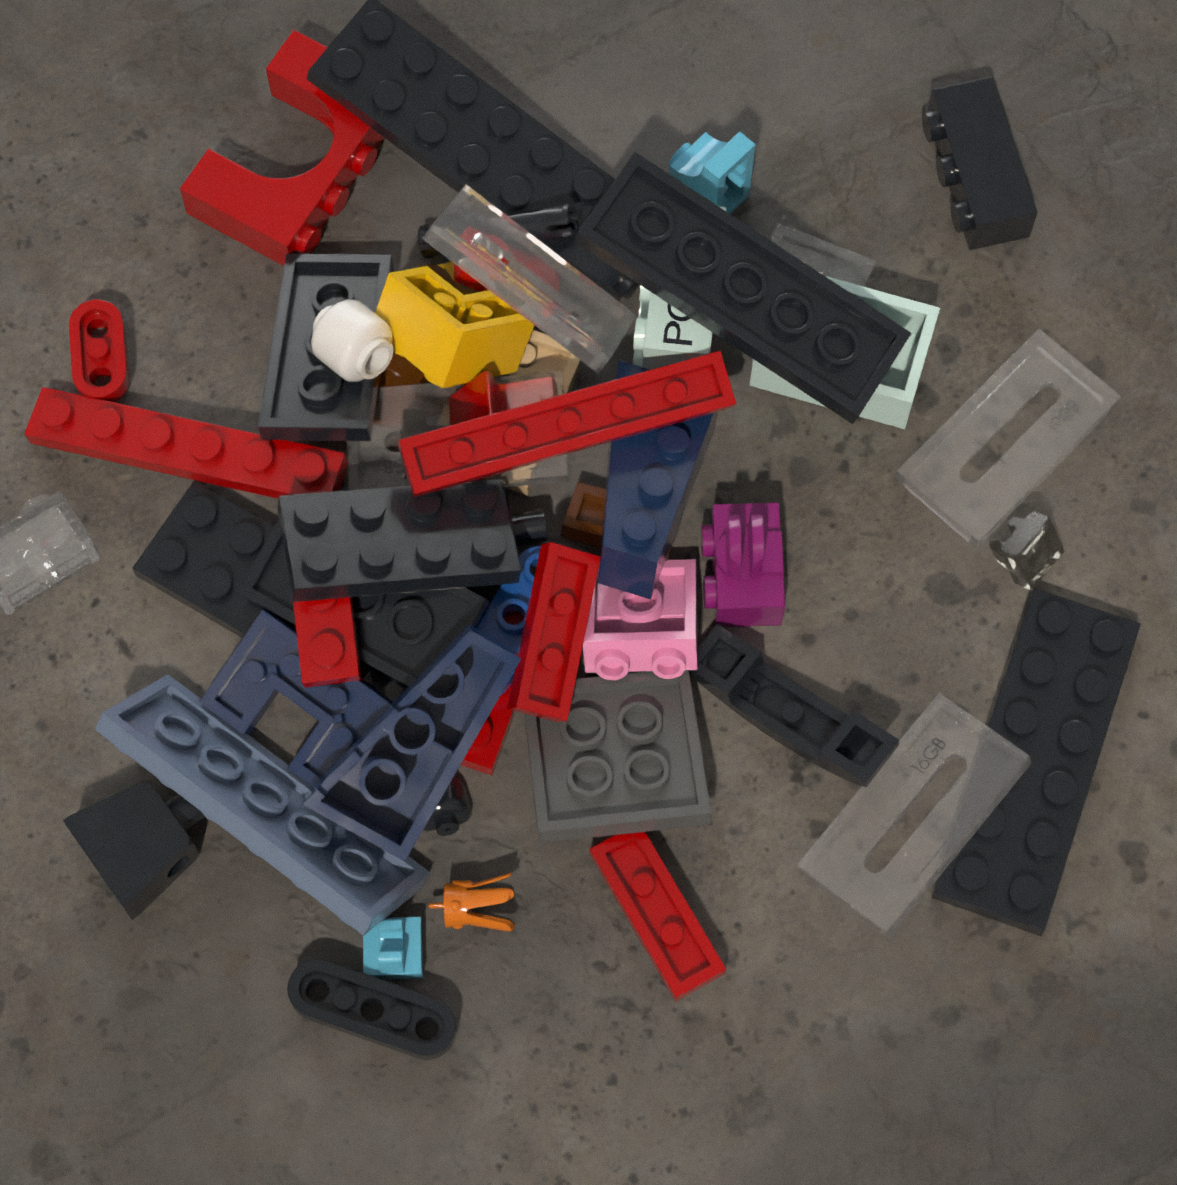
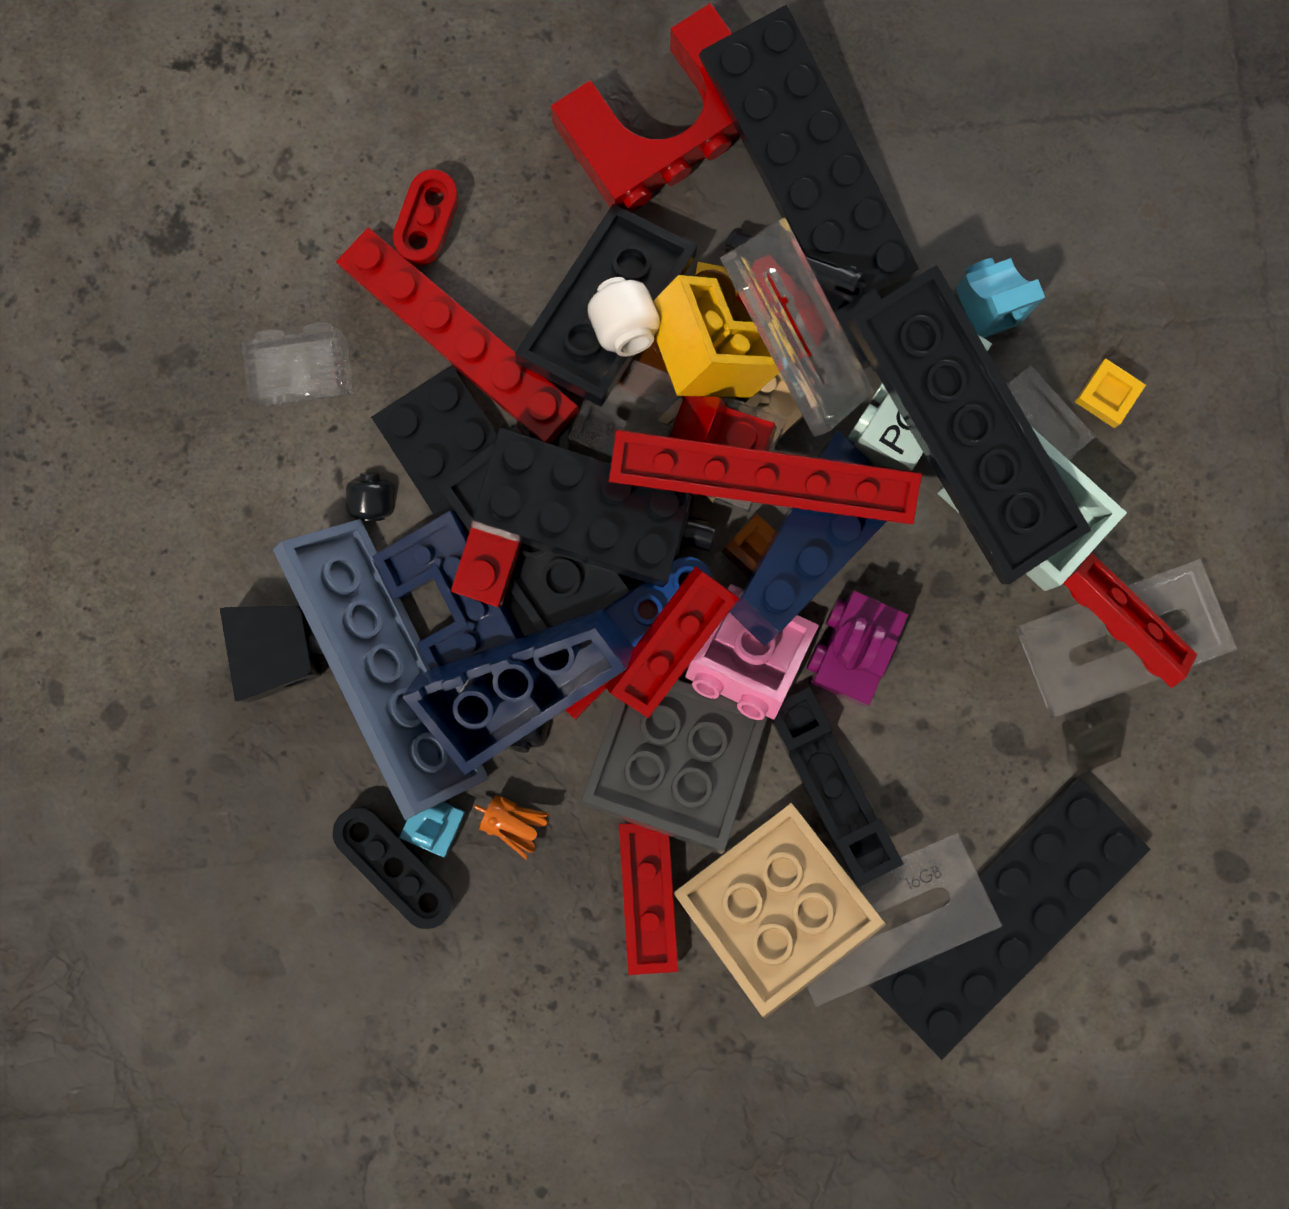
camera: 25 degrees right, 15 degrees up
(167, 651) = (370, 497): none -> black piece
(797, 853) = (779, 910): none -> tan plate
(869, 216) = (1110, 393): none -> yellow plate
(979, 164) = (1227, 389): black brick -> none
(999, 411) = (1131, 621): none -> red plate

